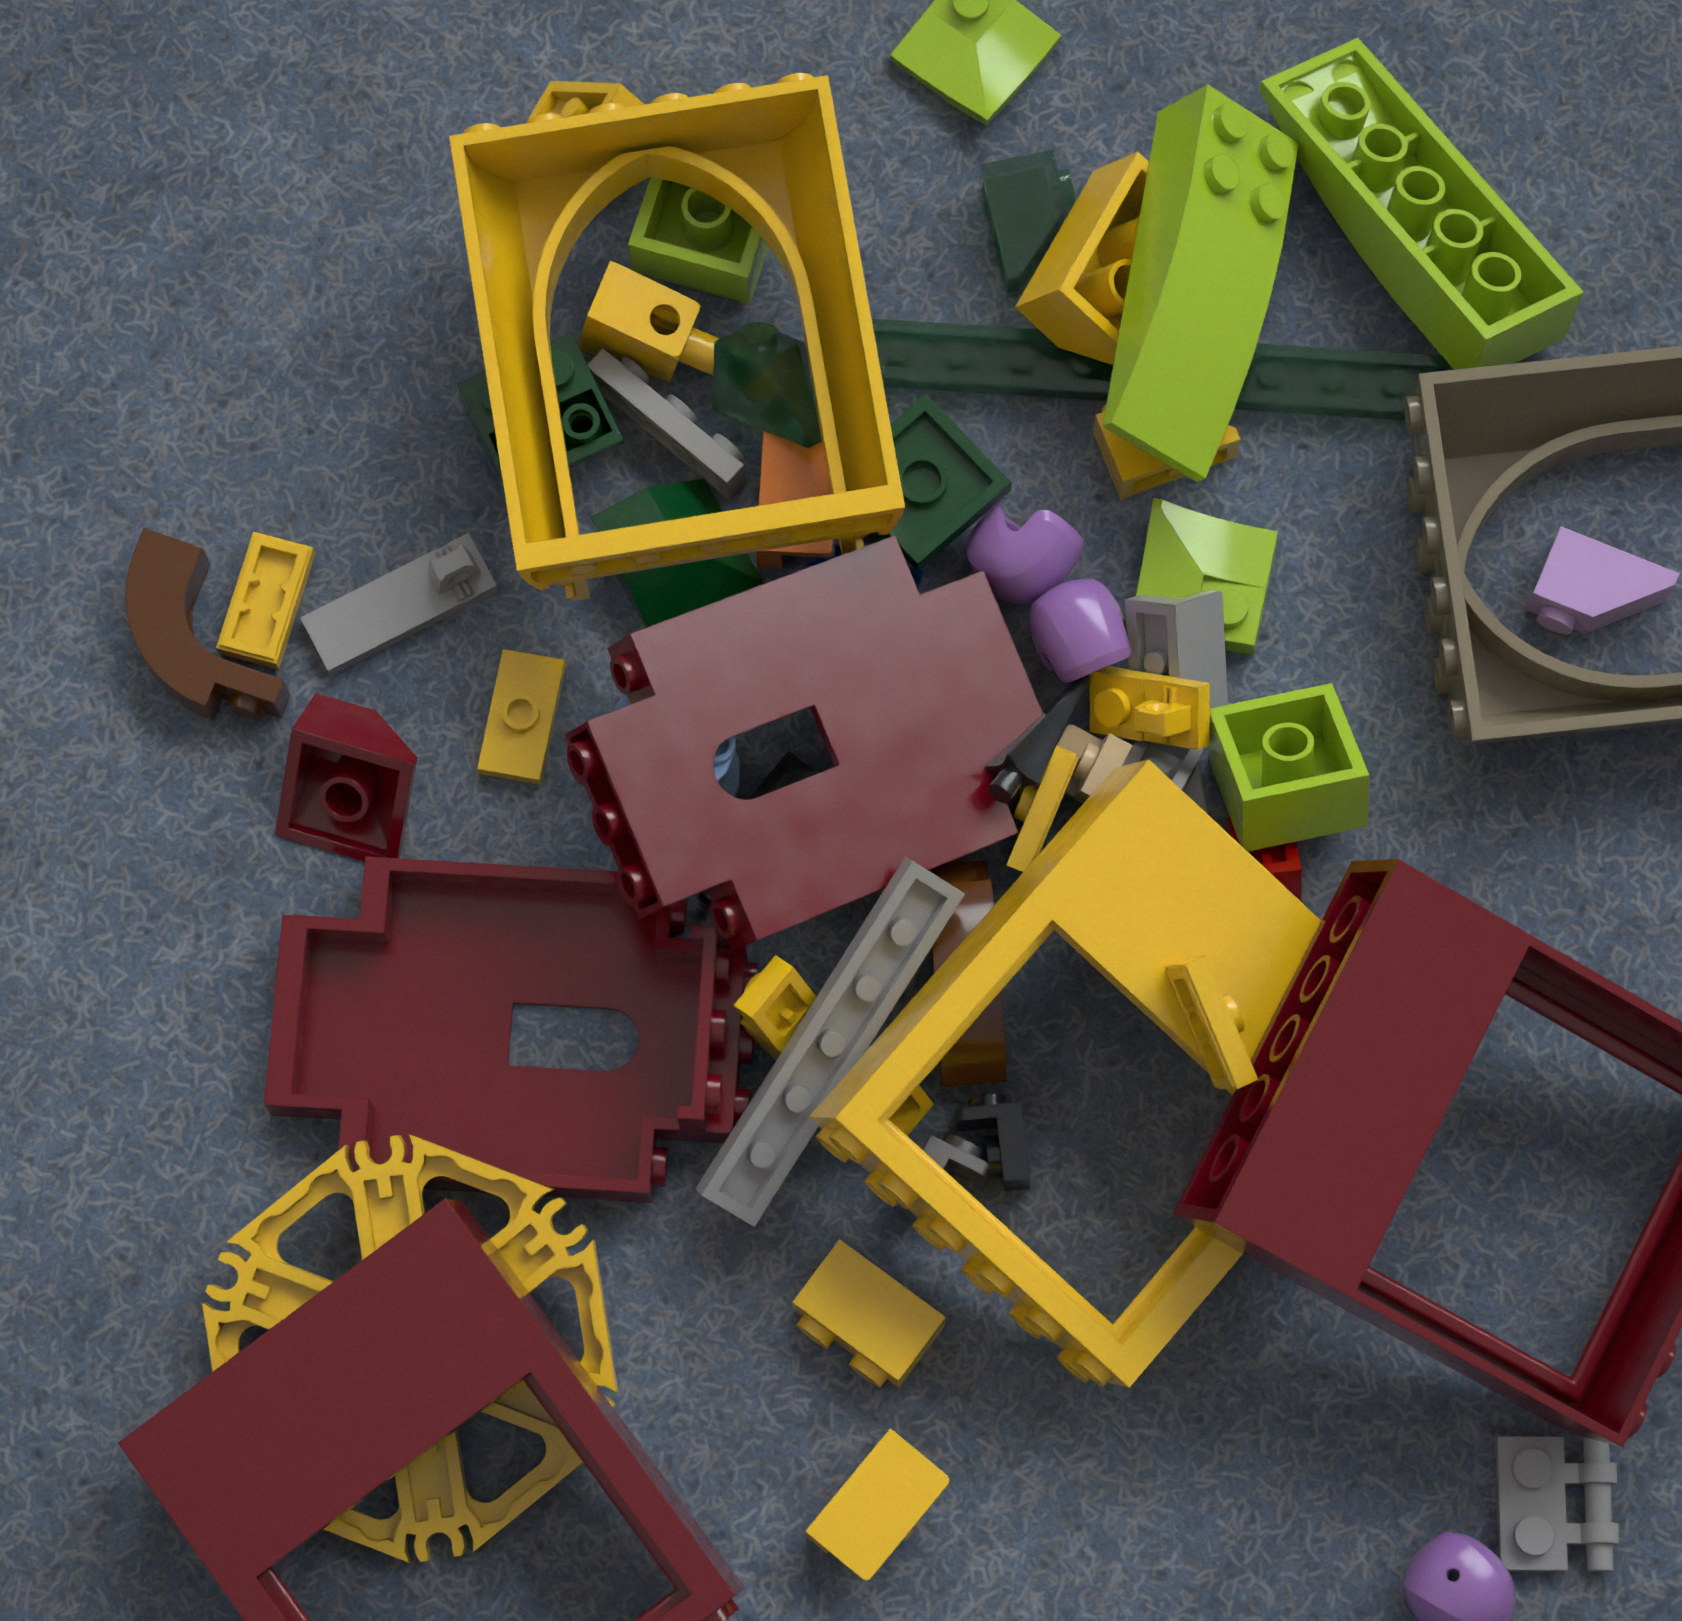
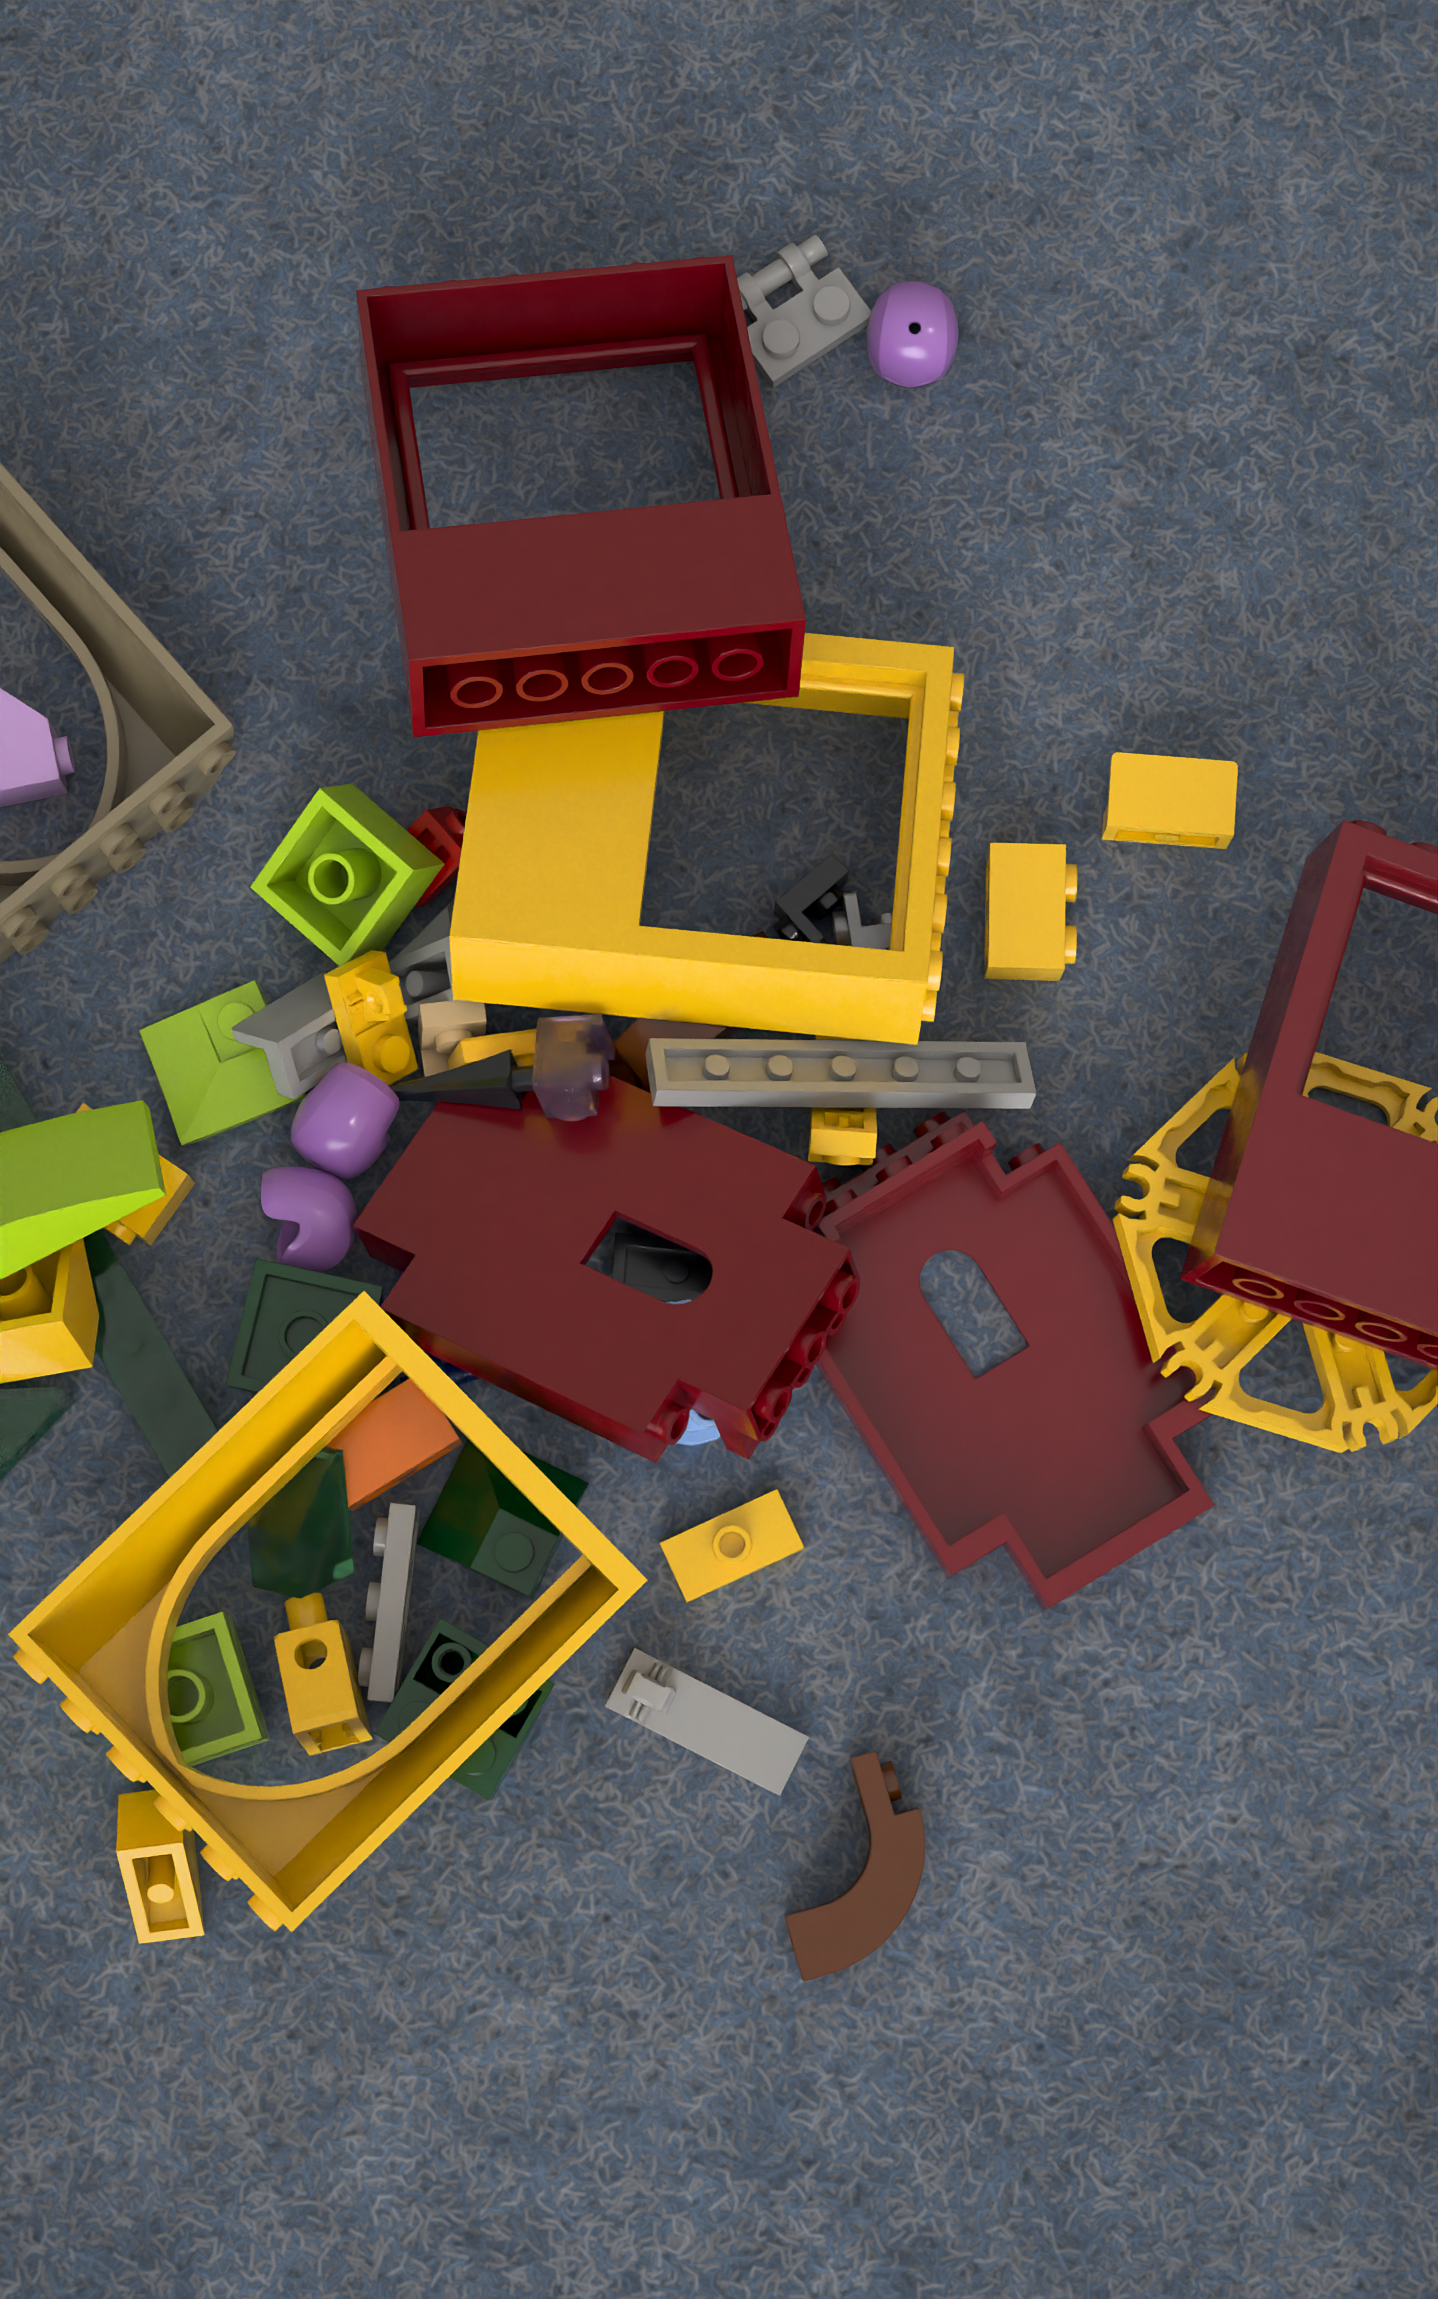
camera: 130 degrees left, 5 degrees up
(266, 600) = (785, 1837): yellow plate -> none
(346, 781) = (892, 1643): dark red slope -> none
(988, 820) = (571, 1065): none -> brick
(1213, 1022) = (630, 749): yellow plate -> none

